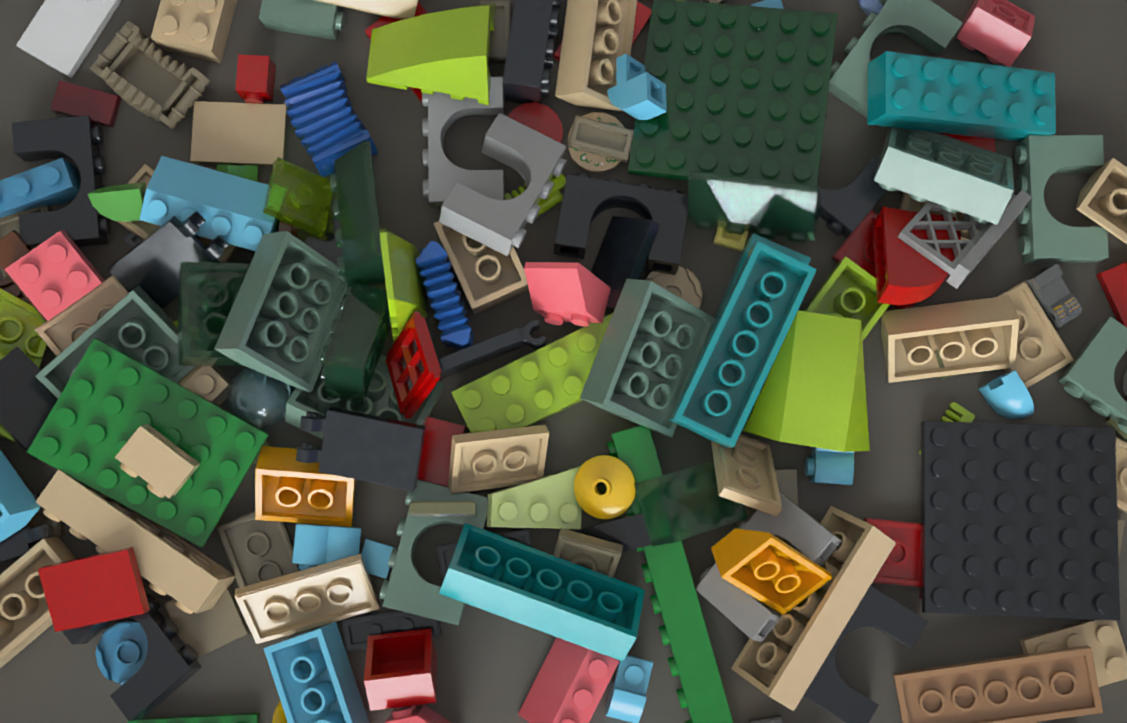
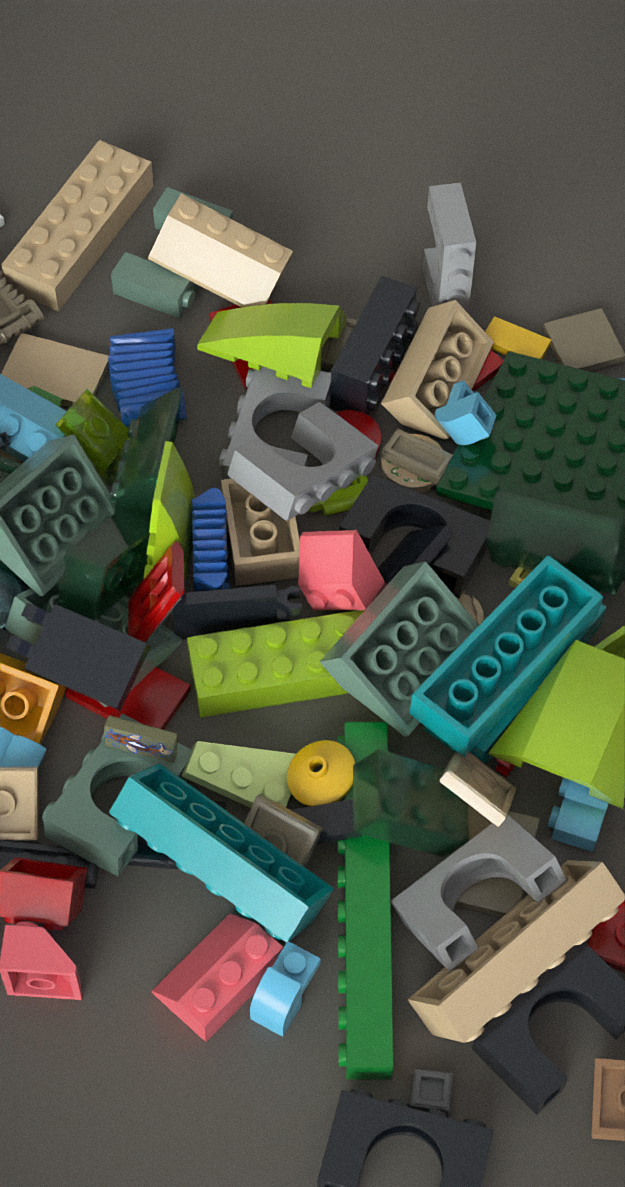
camera: 20 degrees right, 25 degrees down
(255, 78) = (88, 326): red brick -> none
(376, 557) = (50, 786): medium azure tile -> none
(497, 458) = (215, 708): tan plate -> none
(768, 568) = (478, 877): light orange slope -> none

